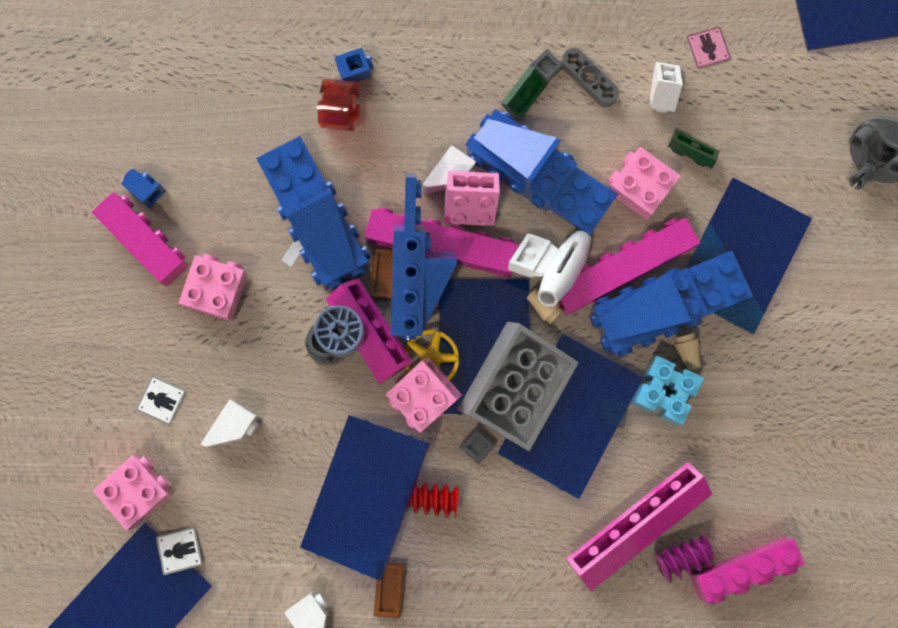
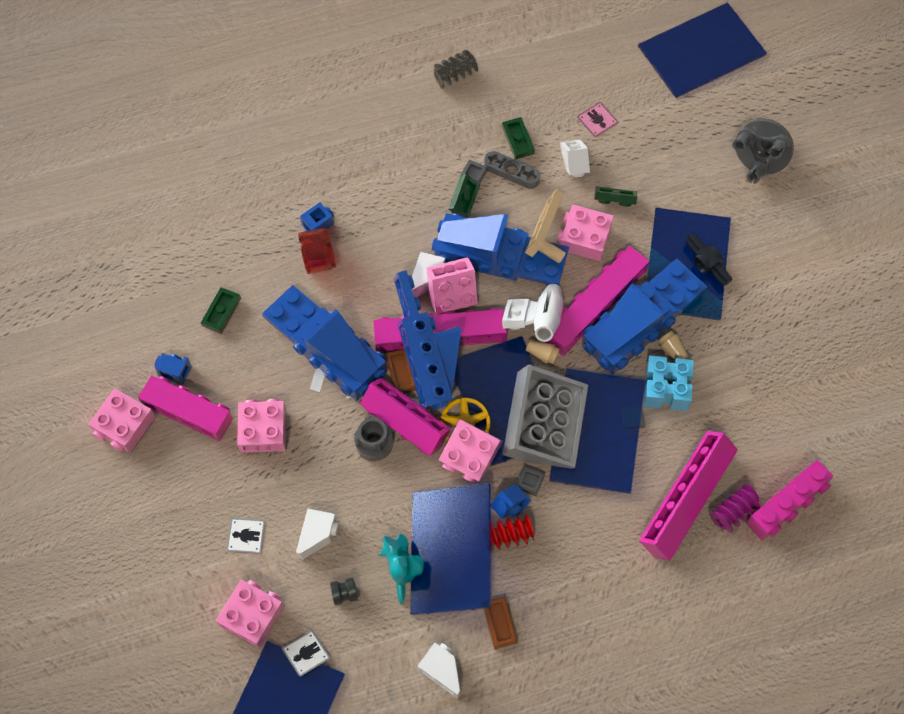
camera: 15 degrees left, 15 degrees down
(68, 231) = (121, 421): none -> bright pink brick
(215, 137) = (220, 310): none -> dark green plate
(238, 501) = (343, 591): none -> pearl dark grey wheel
(307, 494) = (402, 565): none -> teal animal
(328, 324) = (383, 416): sand blue wheel -> none
(446, 467) = (510, 502): none -> blue brick
(584, 178) = (538, 241): none -> tan piece
(610, 41) = (518, 138): none -> dark green plate
(767, 262) = (708, 259): none -> black axle

